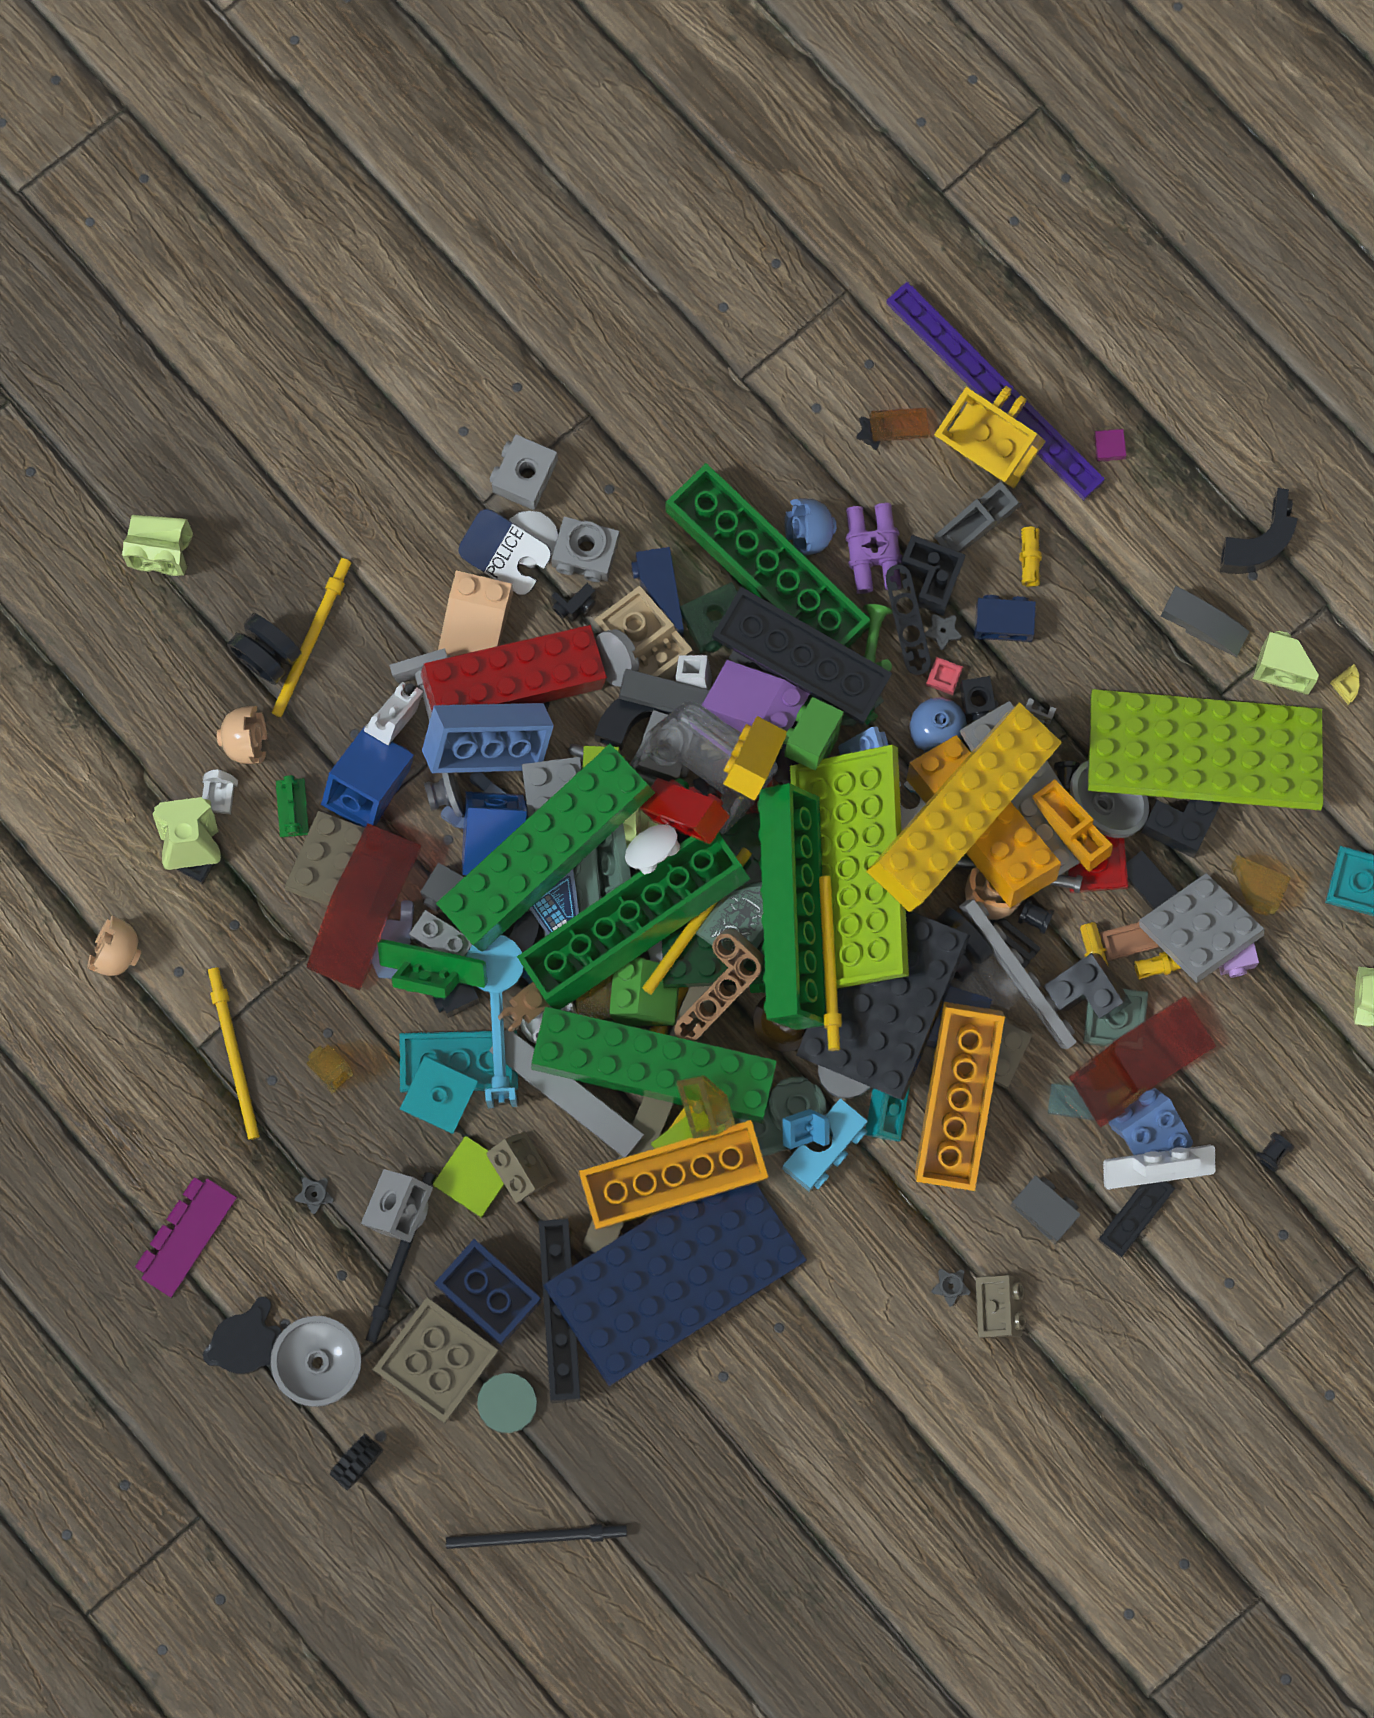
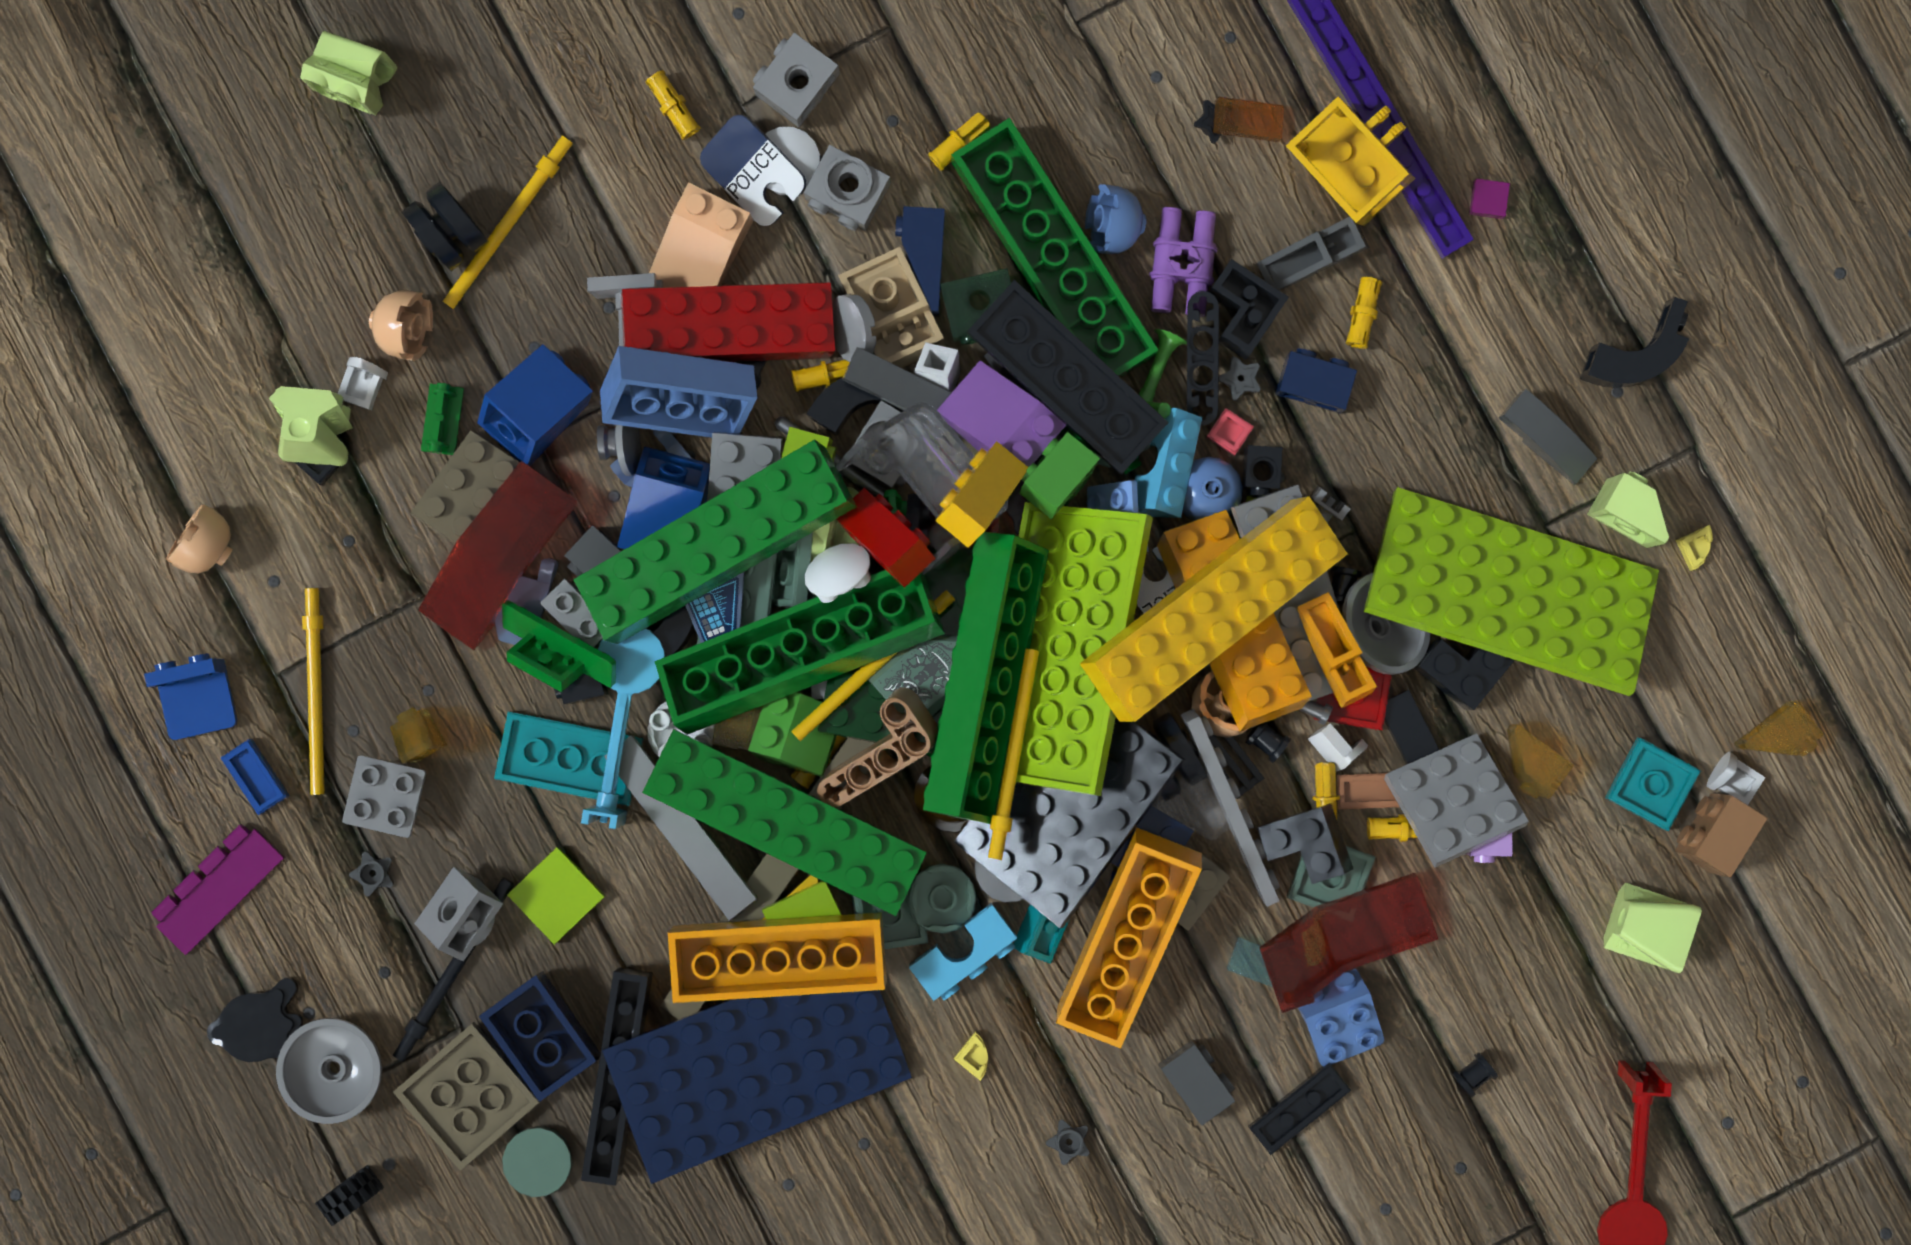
camera: 15 degrees right, 10 degrees up
(134, 1078) = (194, 696): none -> blue bracket
(198, 1135) = (255, 776): none -> blue tile
(314, 1122) = (384, 796): none -> light grey bracket
(394, 714) = (580, 338): white hinge -> none
(427, 514) = (673, 105): none -> yellow pin
(439, 1094) = (536, 793): teal plate -> none
(520, 1166) = (611, 898): dark tan bracket -> none
(526, 1005) = (654, 718): medium nougat plate -> none
(581, 602) = (827, 251): black bracket -> none
(596, 703) = (819, 375): none -> yellow axle
(675, 481) = (969, 131): none -> yellow axle
(705, 1106) = (829, 897): clear yellow slope -> none
(805, 1128) = (941, 932): dark azure bracket -> none
(854, 1232) = (974, 1056): none -> light yellow tile
(903, 720) = (1165, 486): none -> medium azure arch
(999, 1306) = (1118, 1181): dark tan bracket -> none
(1092, 909) = (1335, 748): none -> white tile
(1159, 1166) = (1339, 1066): white bracket -> none

